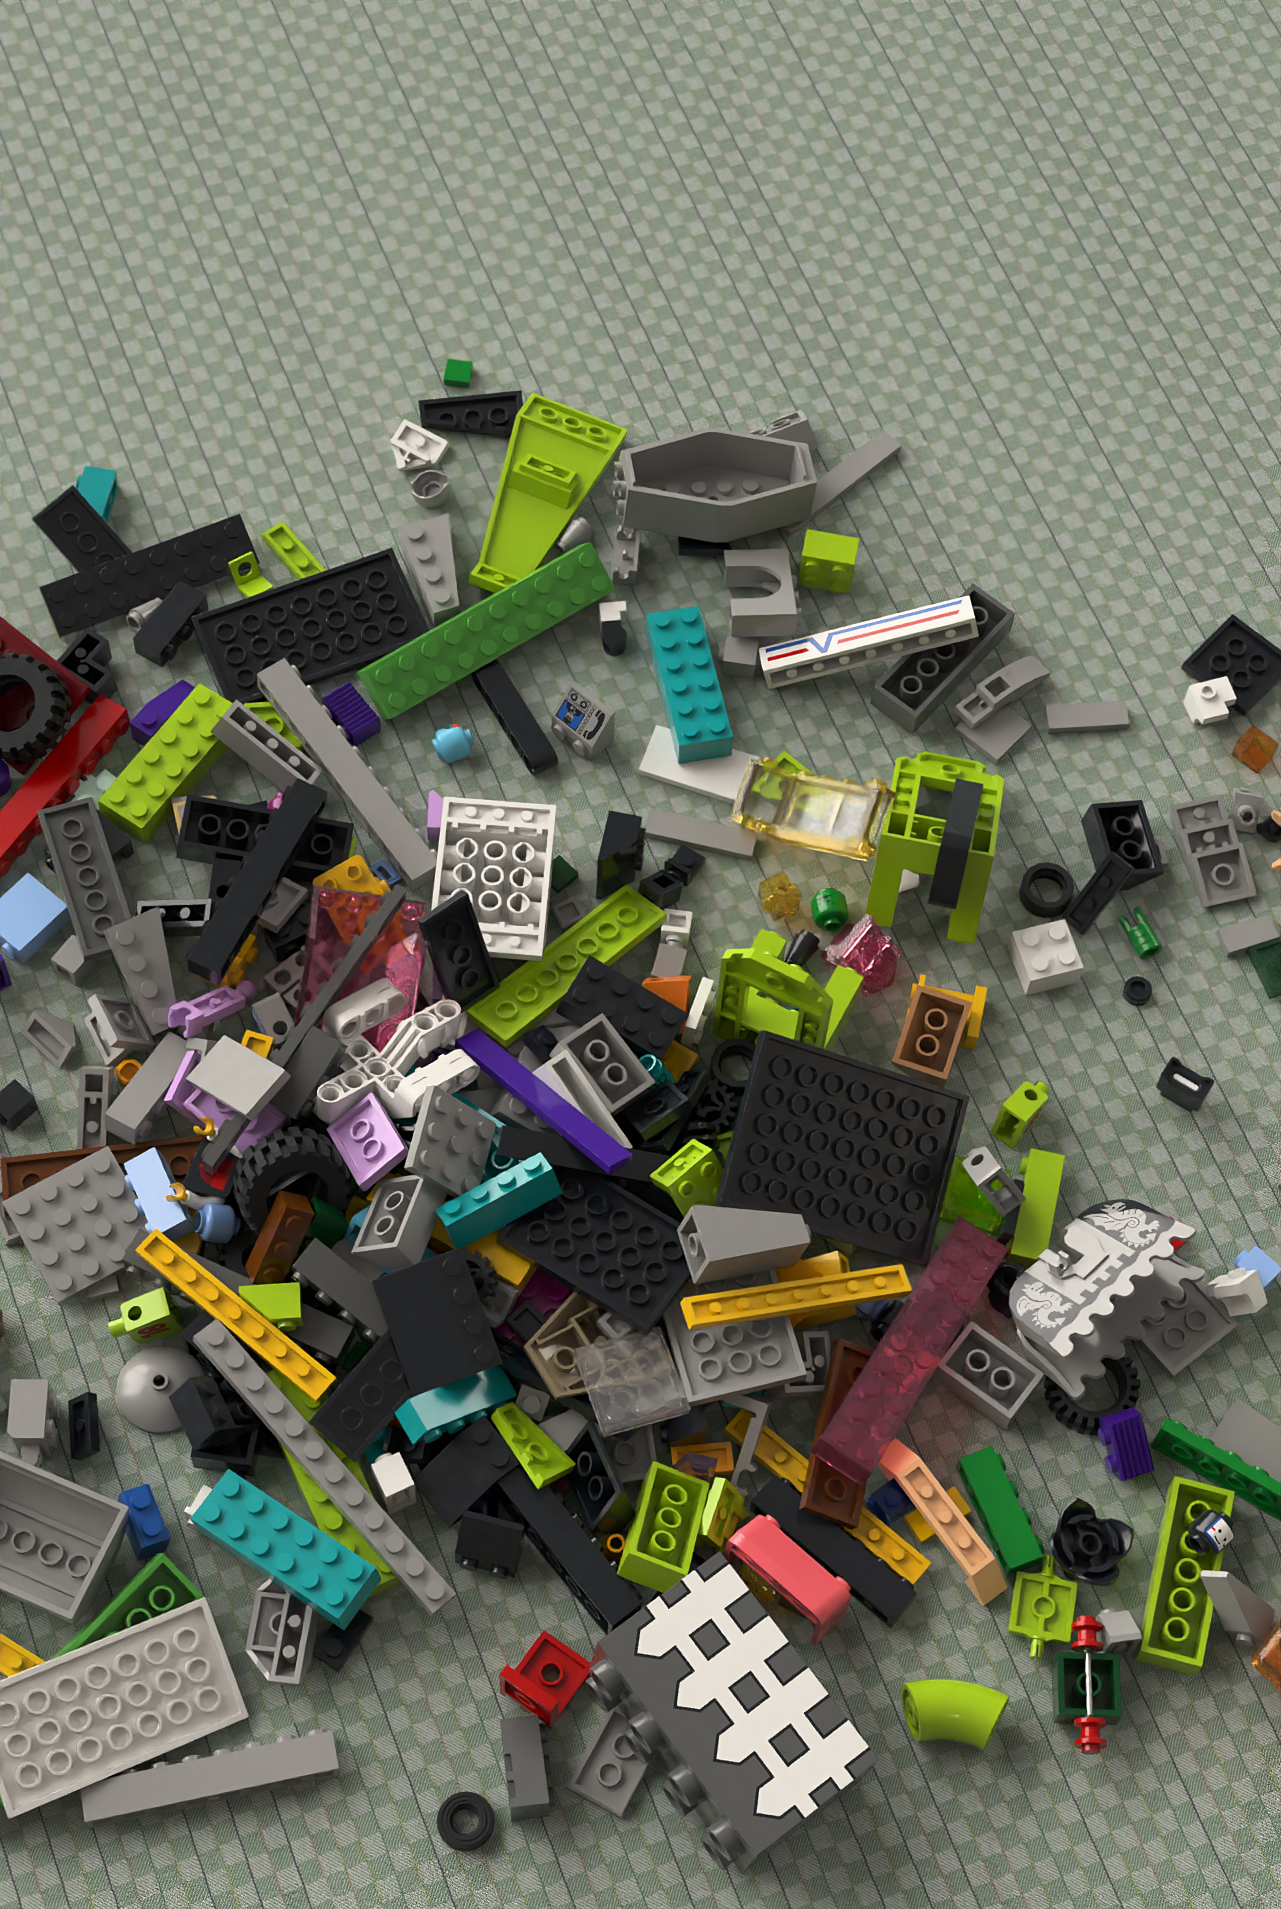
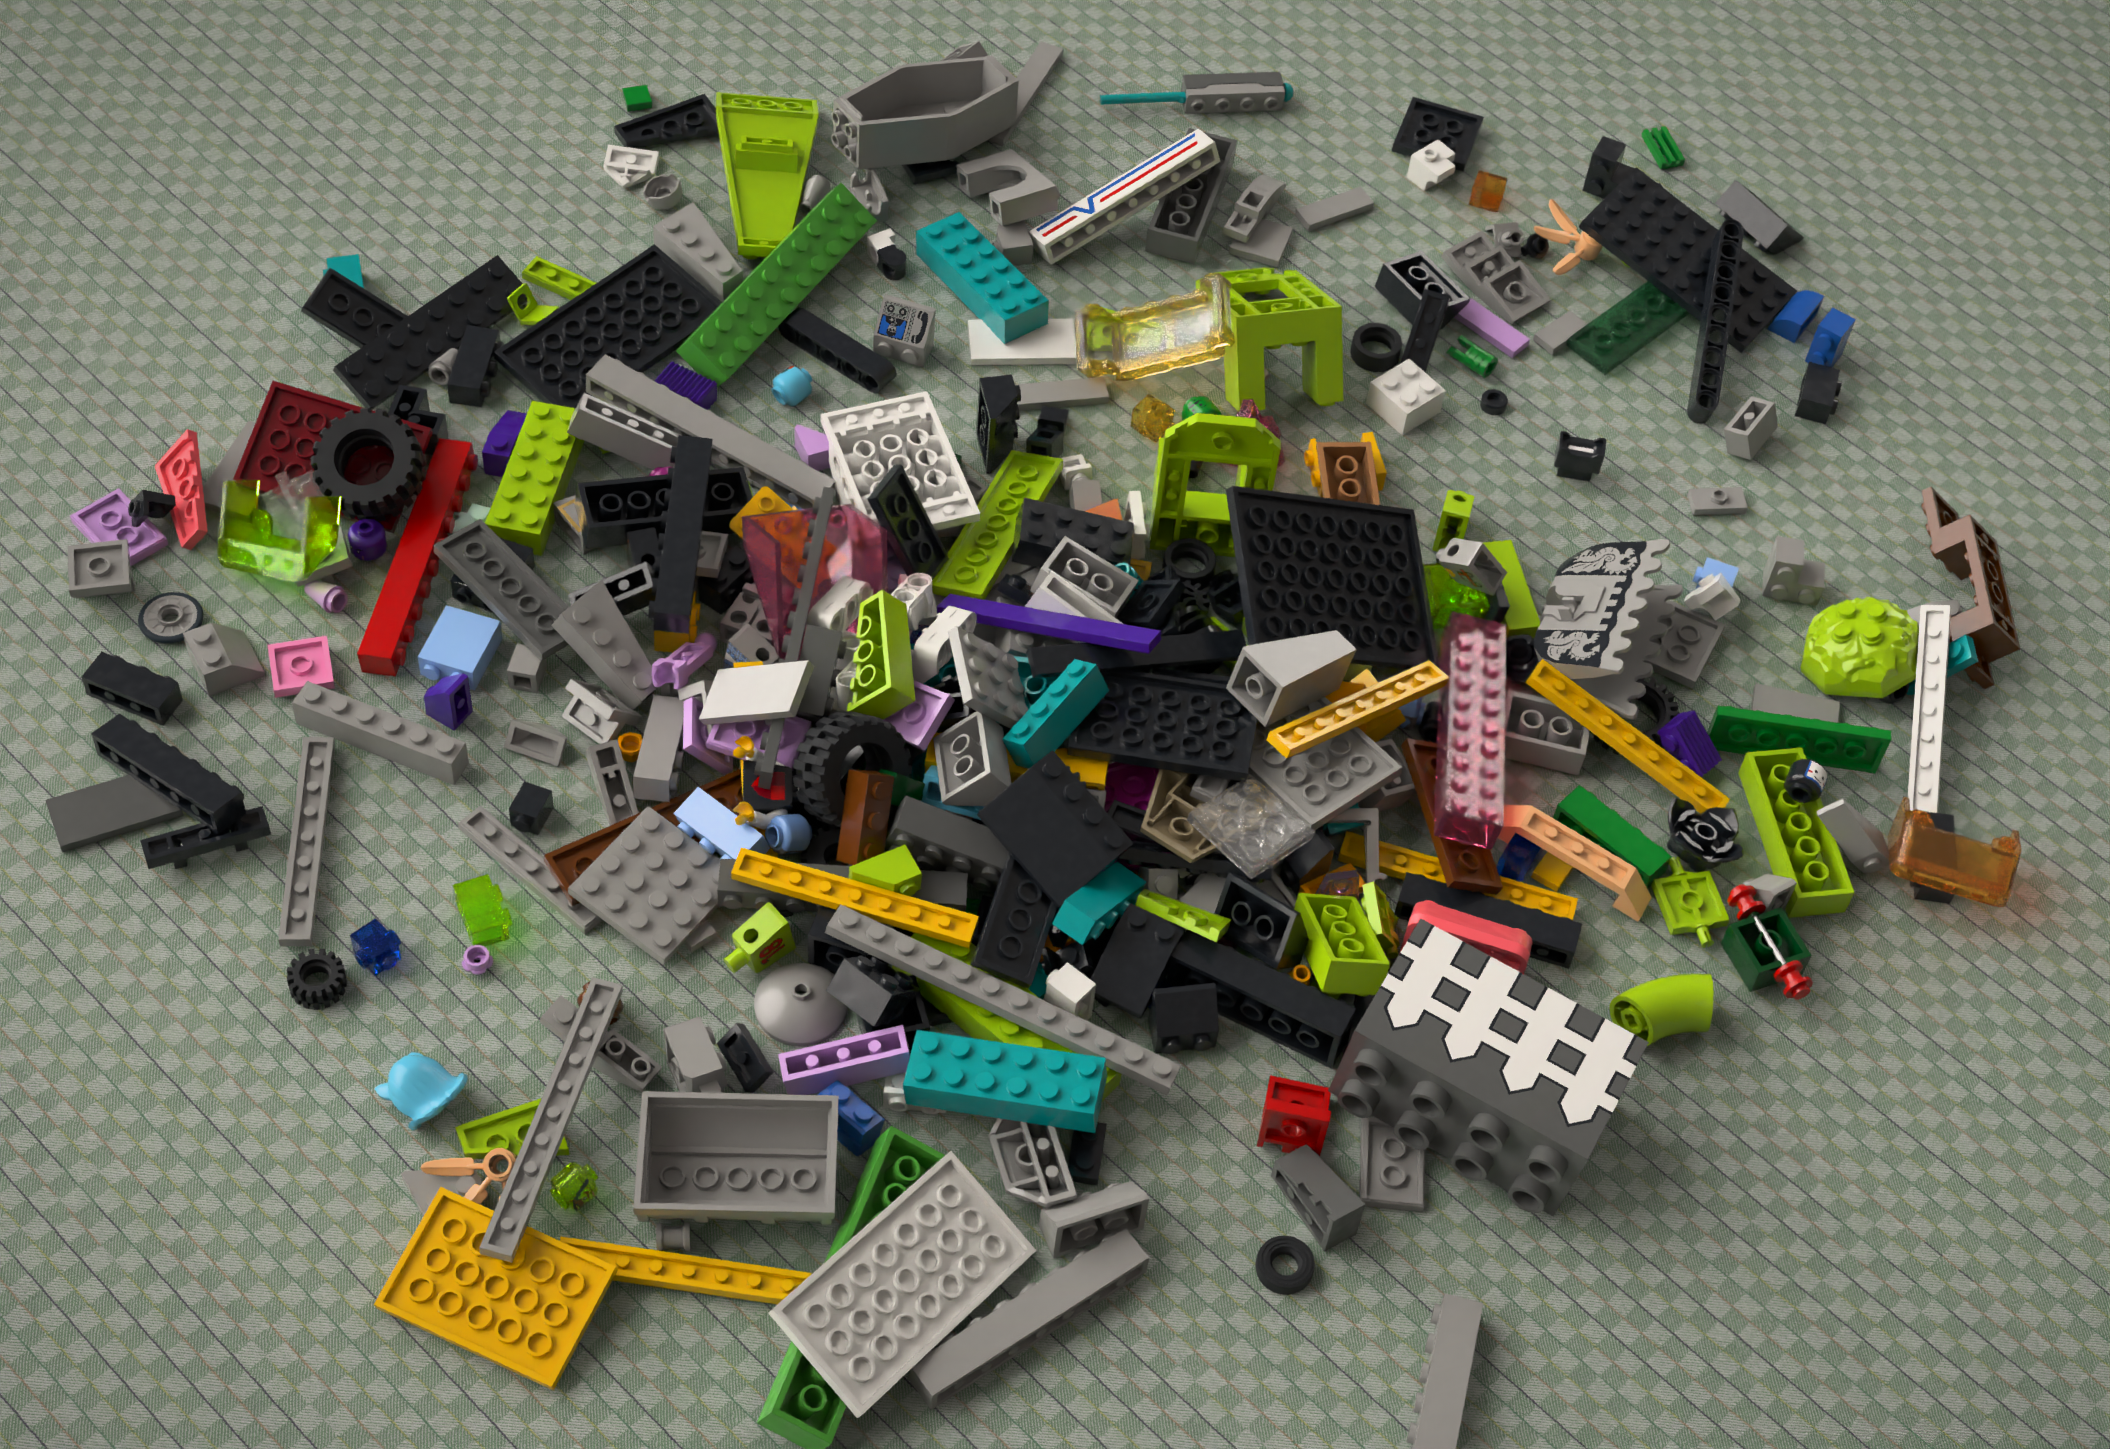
camera: 25 degrees left, 10 degrees down
(160, 1467) = (846, 1060): none -> lavender brick
(312, 1706) = (1092, 1217): none -> light grey slope
(364, 1086) = (883, 658): none -> lime wedge
(690, 1176) = (1216, 641): lime bracket -> none
(828, 561) = (1054, 146): lime brick -> none
(955, 844) = (1308, 307): black beam -> none
(1033, 547) = (1219, 93): none -> piece
(1060, 1417) = (1625, 738): none -> yellow plate
(1179, 907) = (1492, 328): none -> lavender tile

